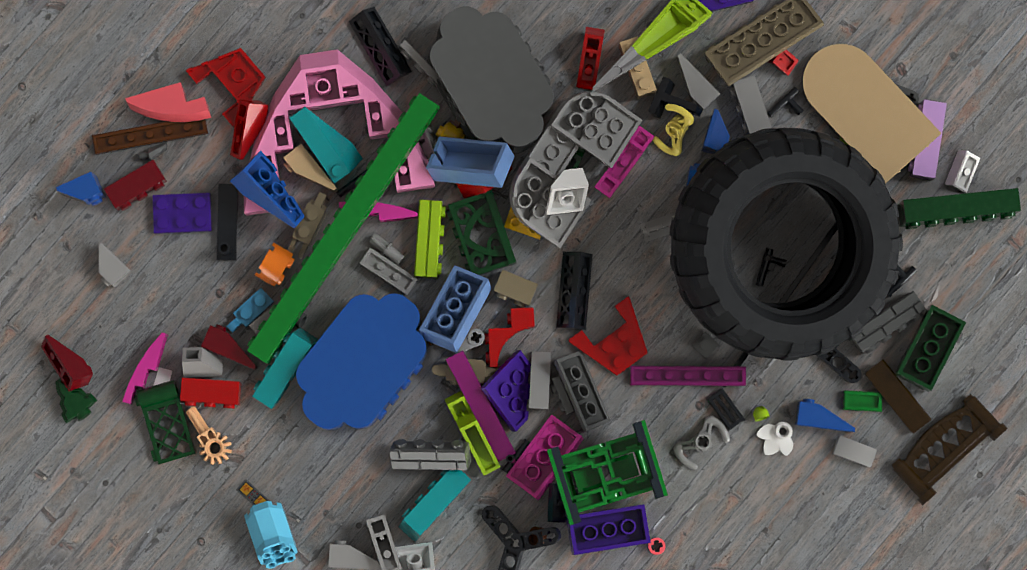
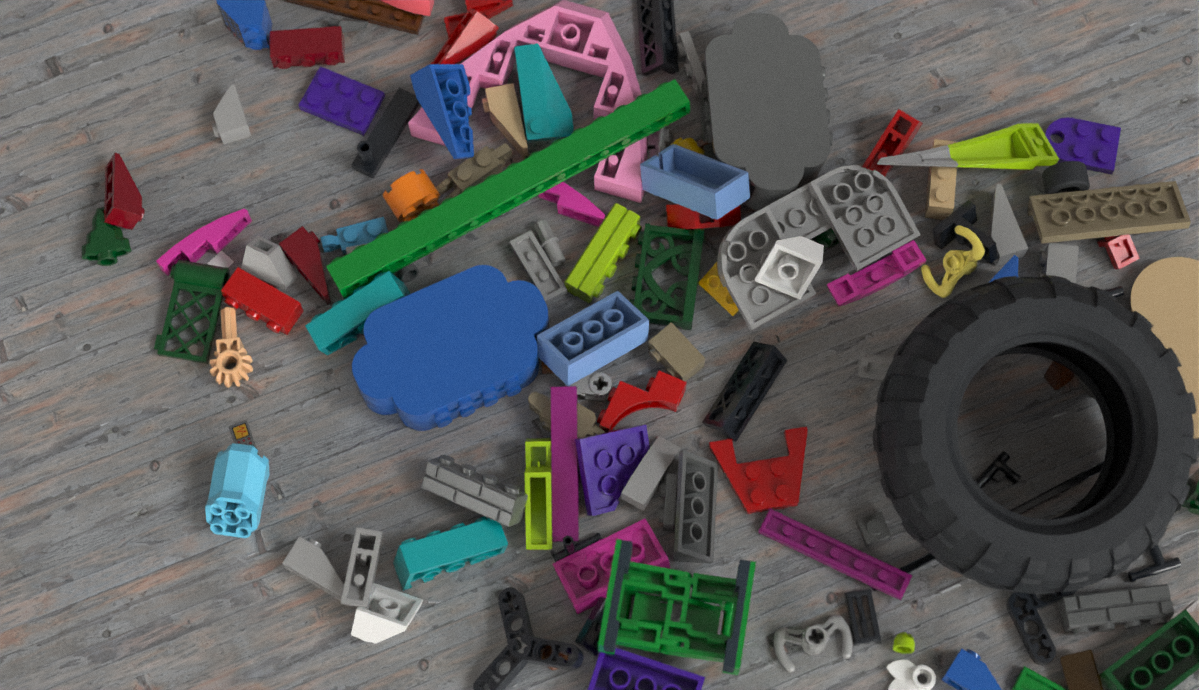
camera: 30 degrees right, 15 degrees down
(723, 26) = (1065, 177): none -> black tyre

